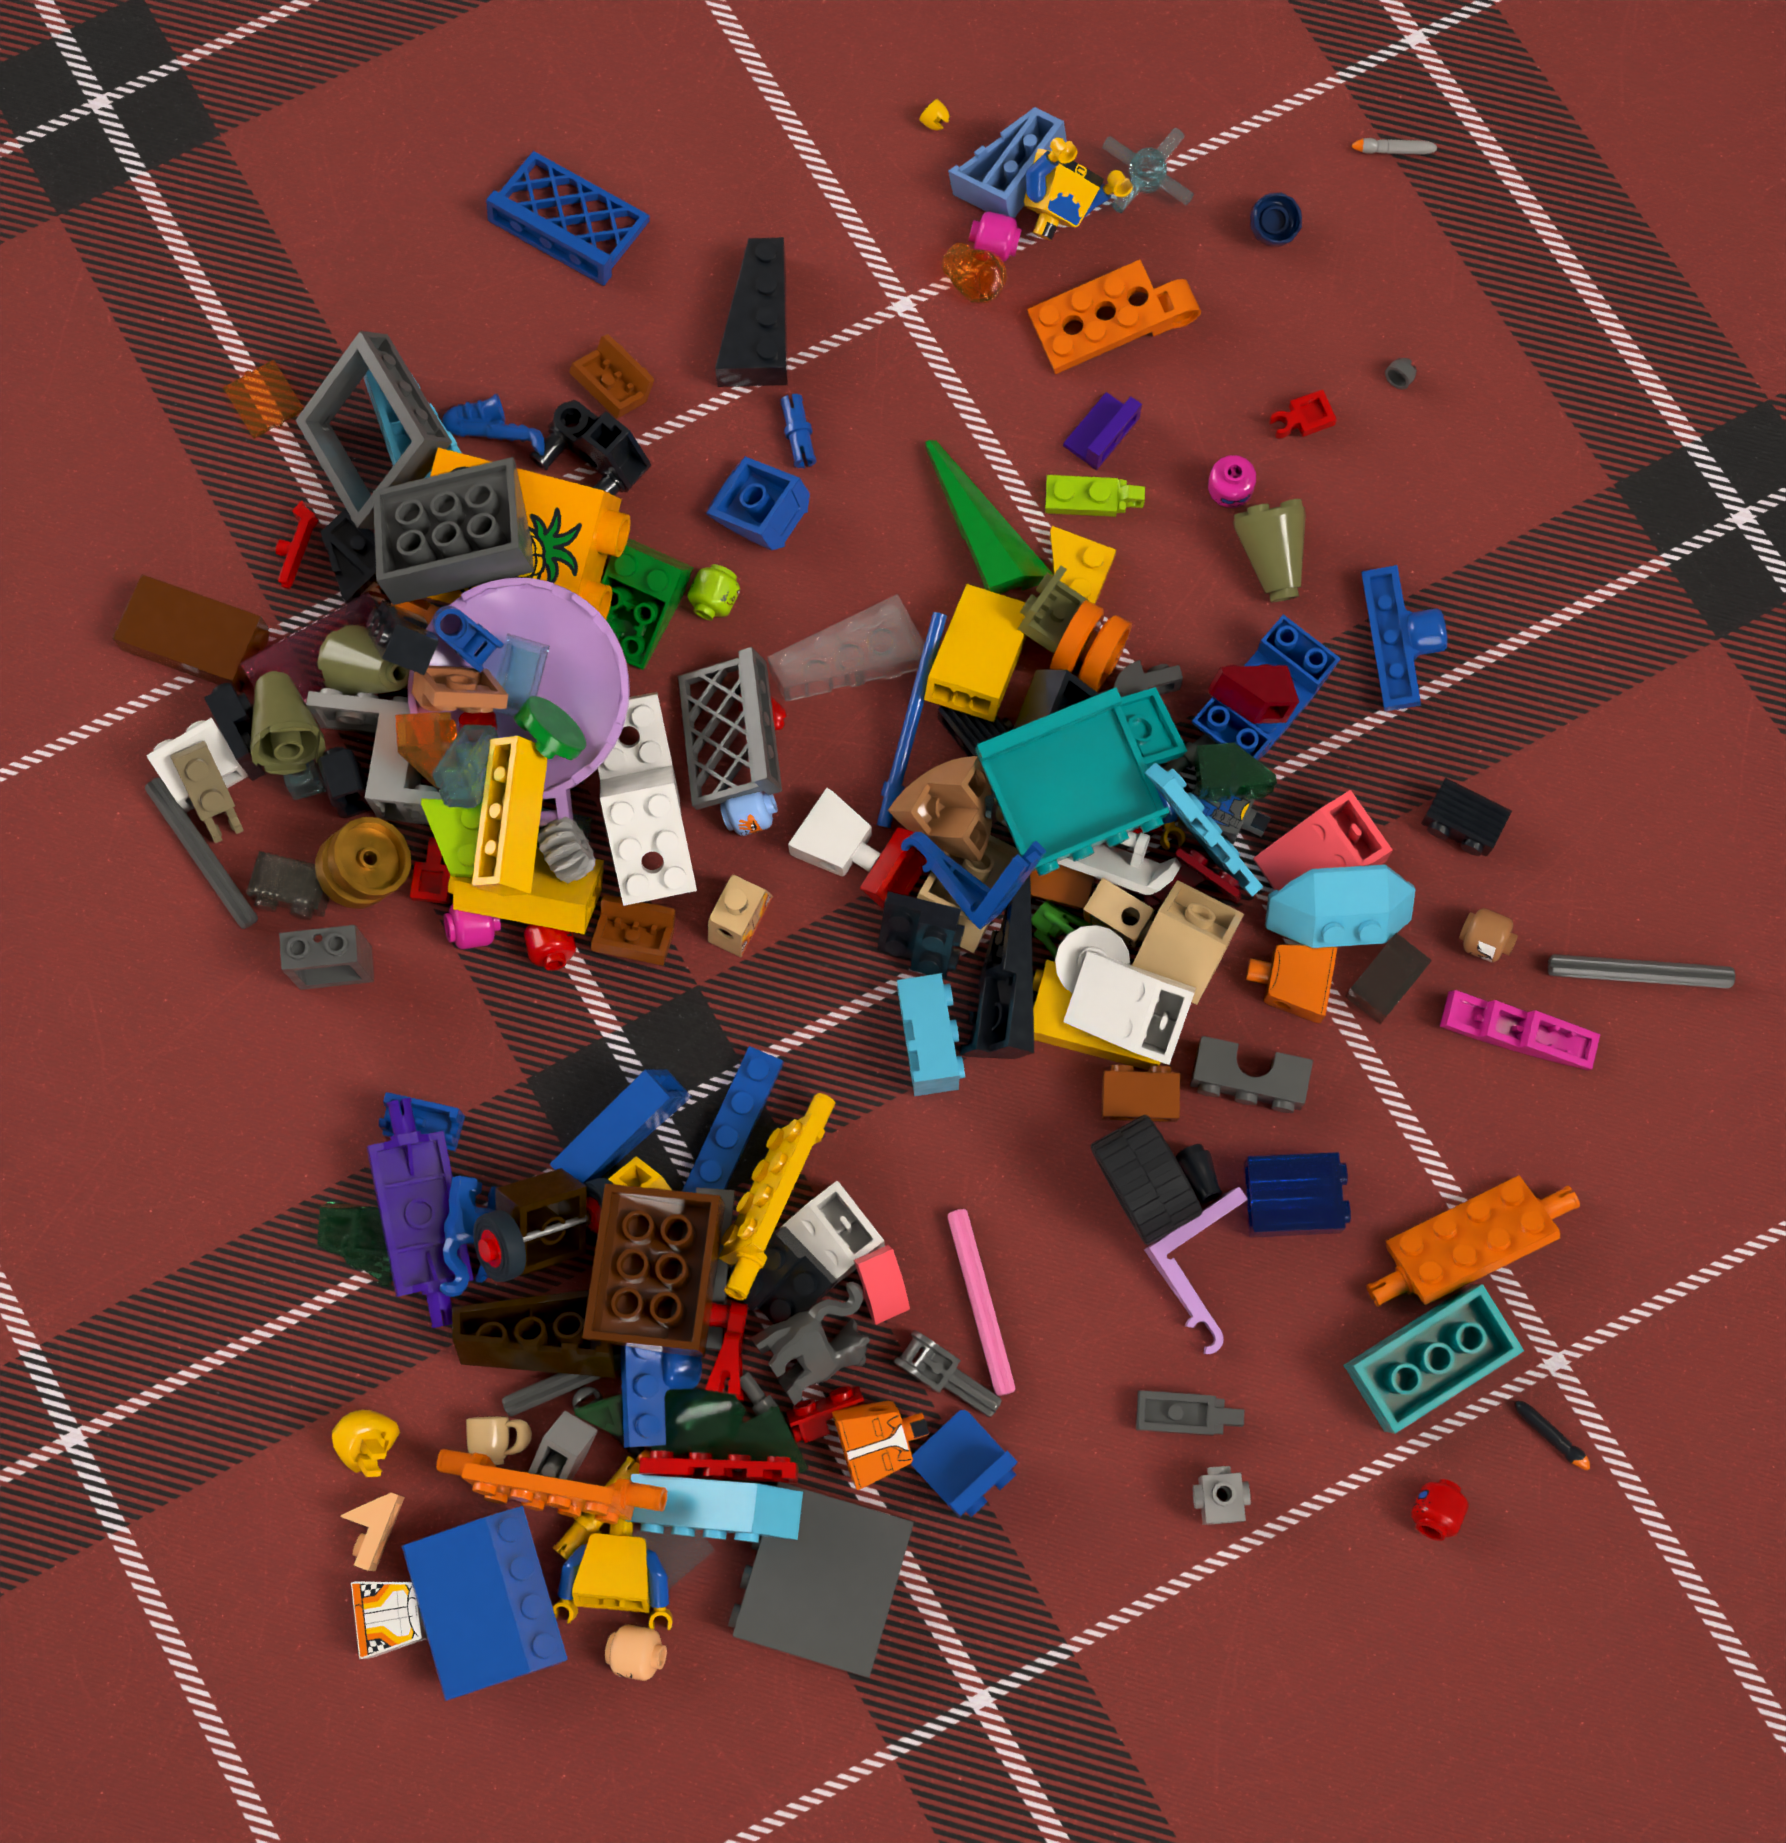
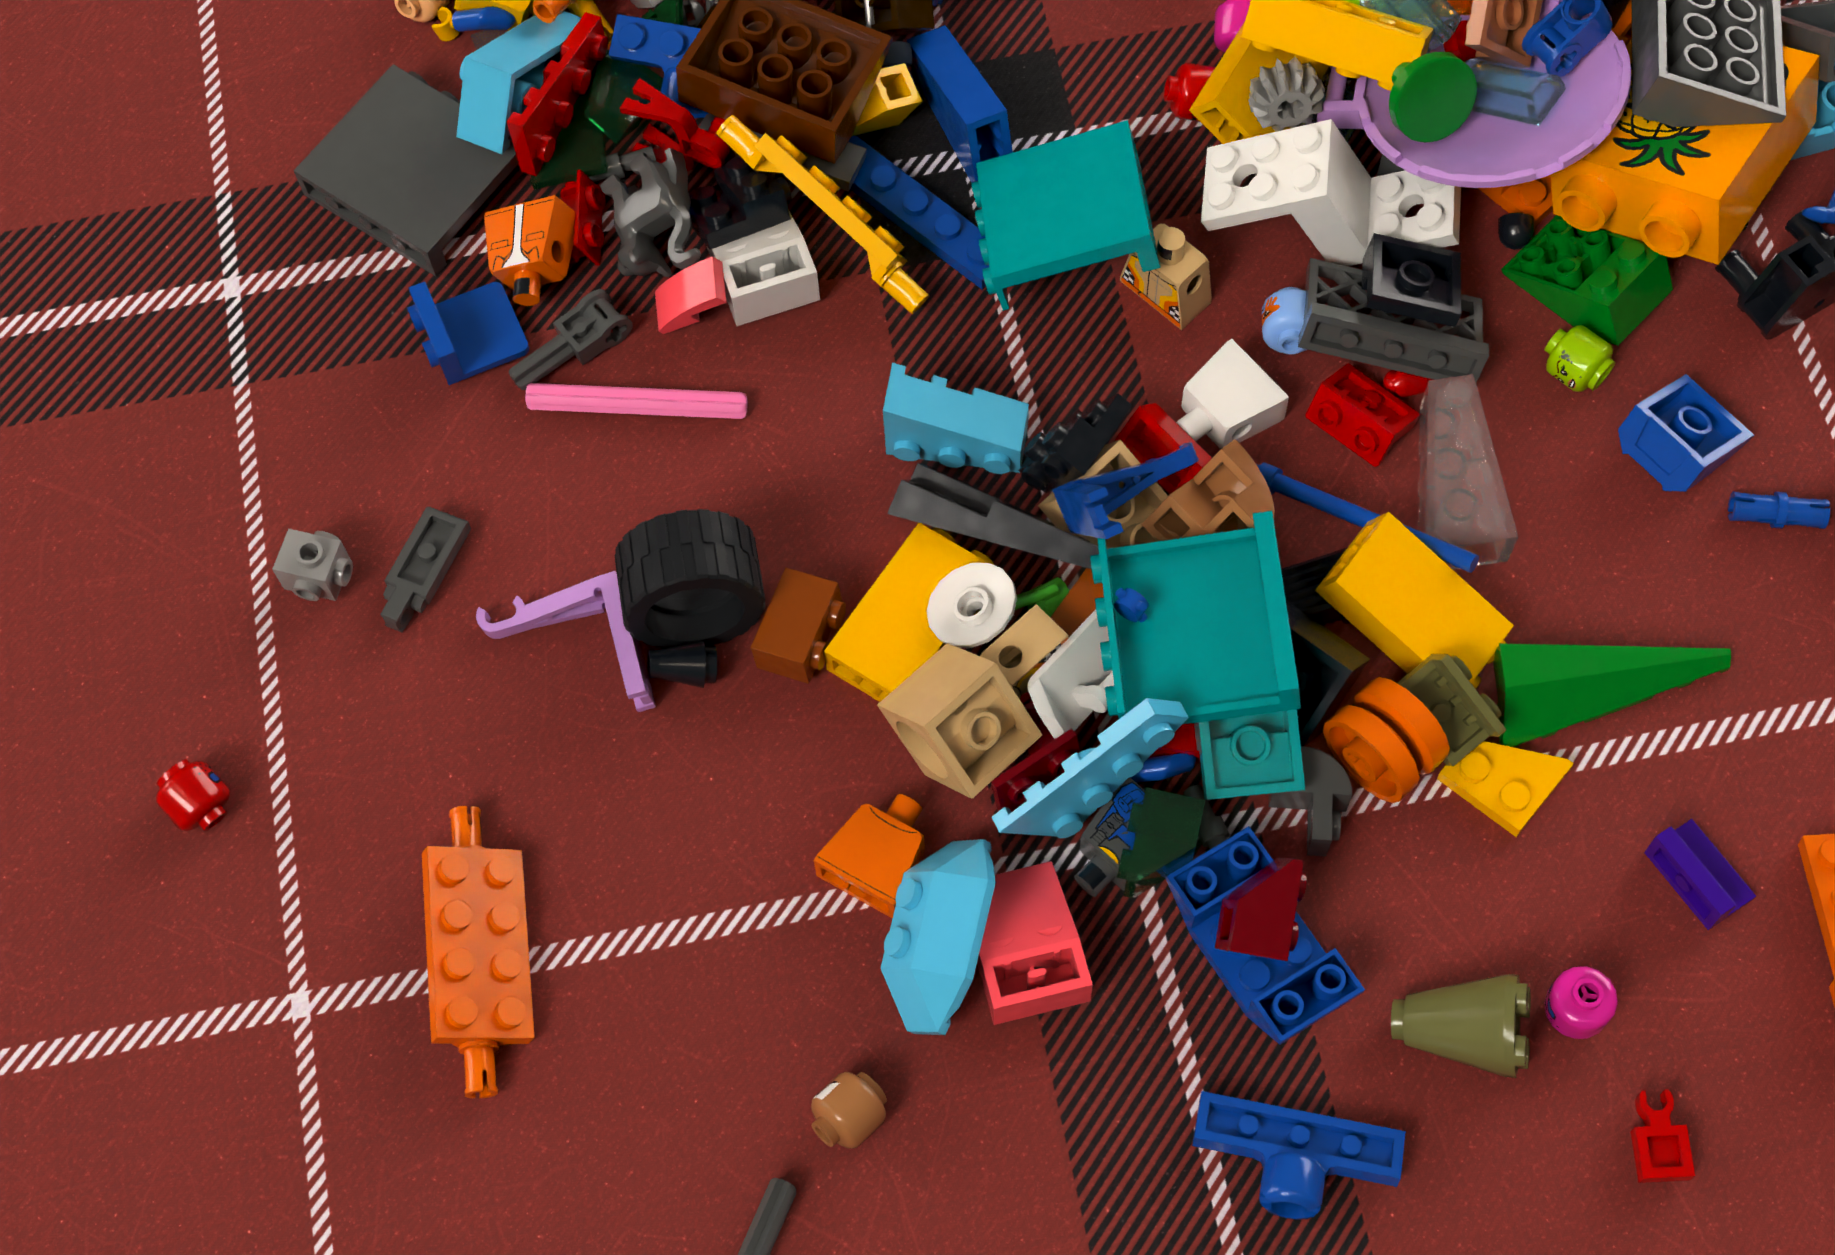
camera: 110 degrees right, 10 degrees down
(634, 930) = (1177, 175): dark orange bracket -> none
(702, 717) = (1412, 280): none -> black plate
(720, 1001) = (1062, 208): none -> teal panel
(813, 736) = (1360, 414): none -> red bracket
(1075, 831) = (1131, 605): none -> blue piece
(1091, 495) = (1607, 827): lime hinge -> none
(1129, 1006) = (892, 623): white slope -> none
(1218, 1072) = (795, 727): dark grey arch -> none
(1296, 1194) = (615, 763): clear blue brick -> none
(1388, 978) = (838, 965): clear smoke panel -> none
(1433, 1358) = (359, 846): teal brick -> none
(1466, 818) = (1015, 1142): black brick -> none
(1519, 1030) = (712, 1110): dark pink slope -> none
(1552, 1435) = (187, 977): black piece -> none

